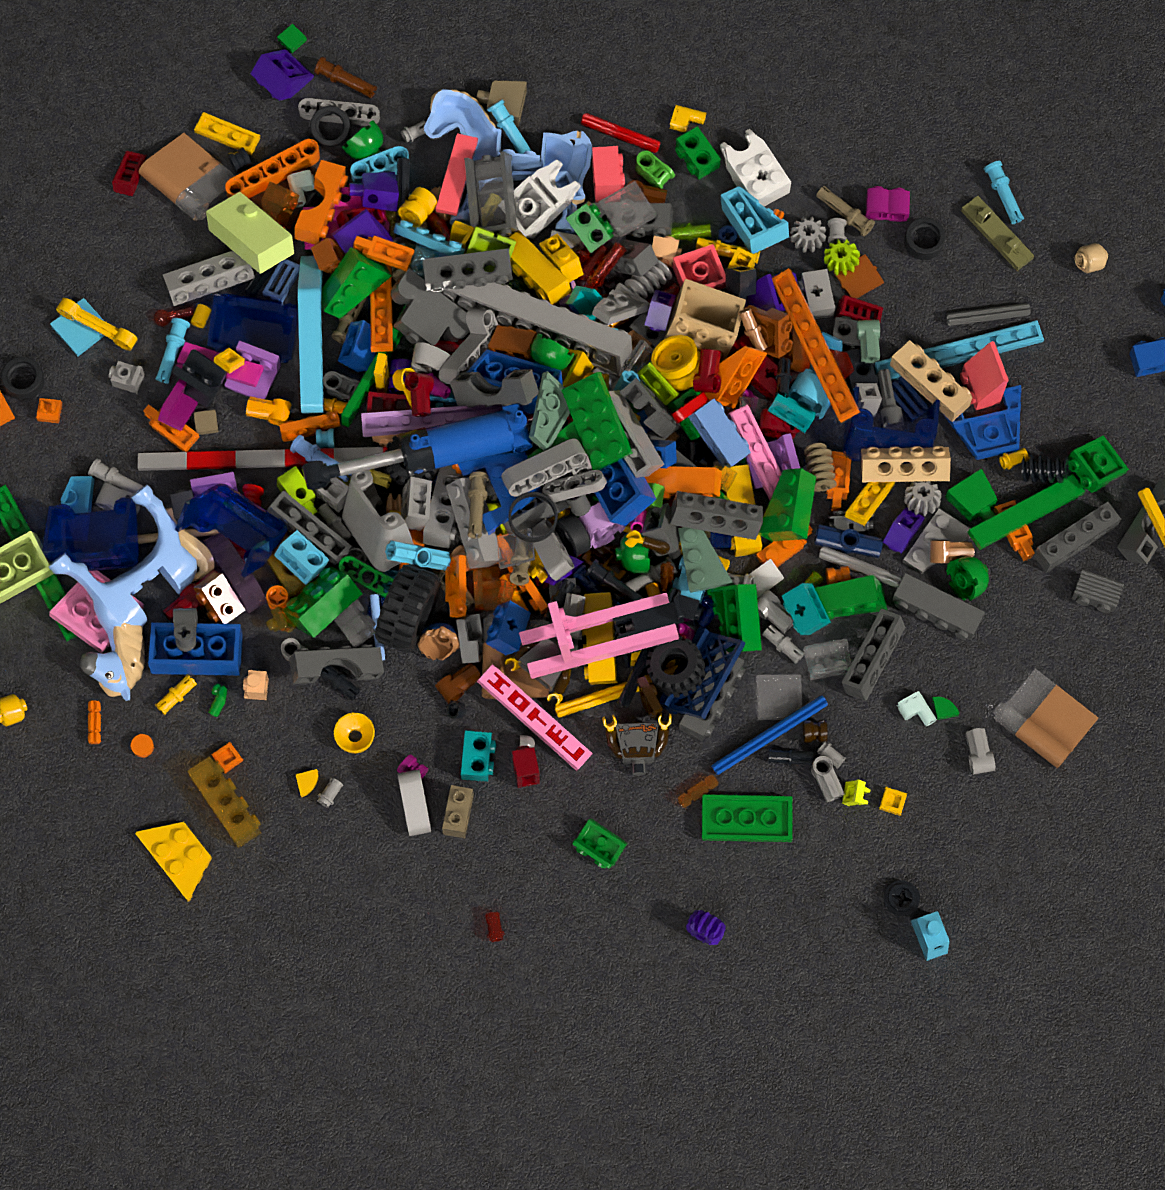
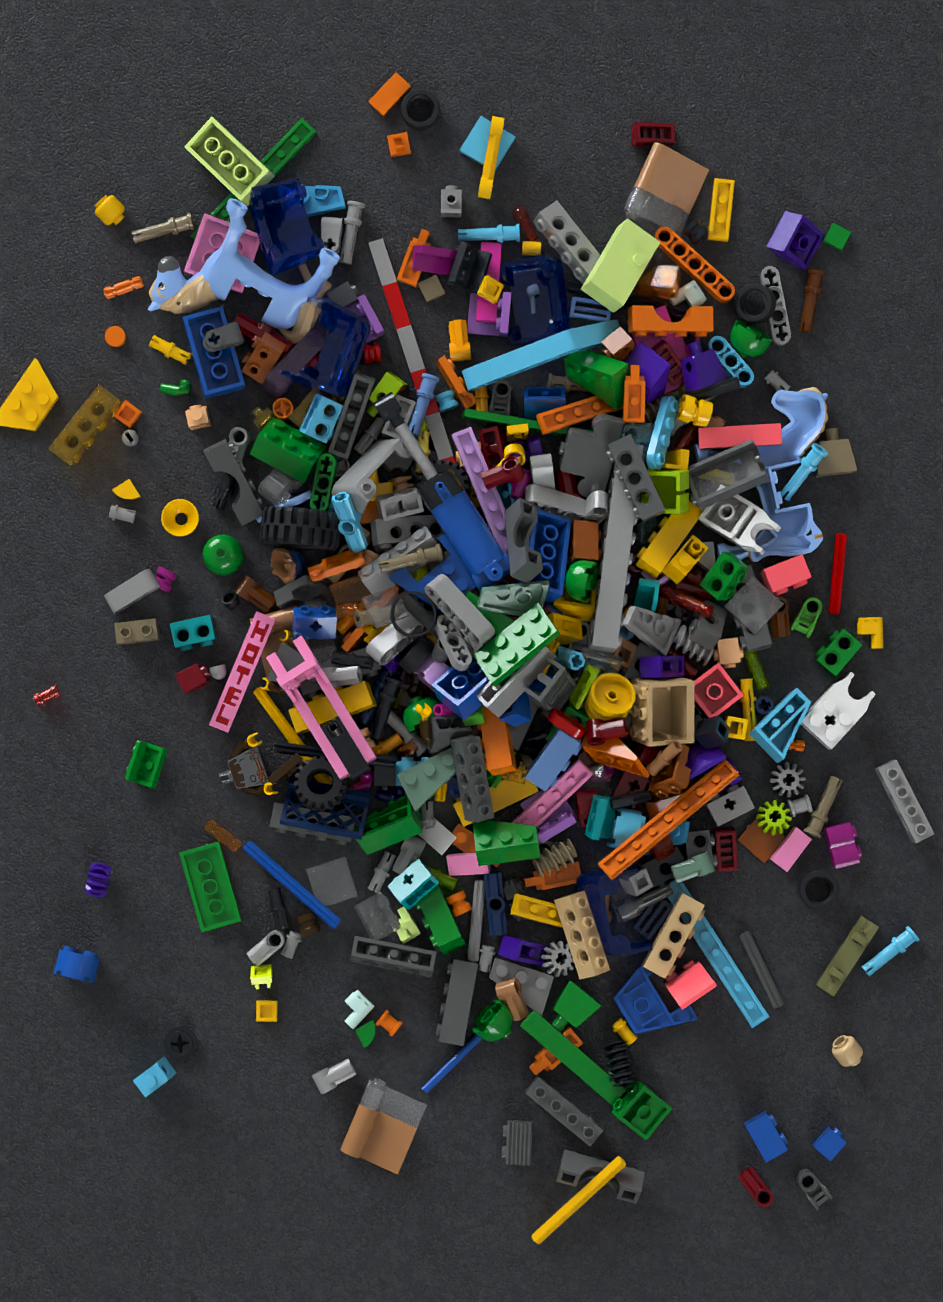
camera: 75 degrees right, 15 degrees up
(49, 652) = (173, 226): none -> dark tan pin
(244, 328) = (532, 290): none -> sand blue hand
(253, 766) = (133, 434): none -> light grey hinge
(406, 704) = (223, 554): none -> green cylinder
(789, 975) = (77, 965): none -> blue brick
(800, 557) = (465, 864): none -> bright pink tile
(846, 630) = (408, 927): none -> yellowish green bracket
(861, 136) = (904, 801): none -> light grey brick
(877, 252) = (790, 849): none -> bright pink tile
(901, 567) = (486, 958): none -> light grey pin
(940, 681) = (389, 1023): none -> orange bush
(999, 634) = (451, 1063): none -> blue bar

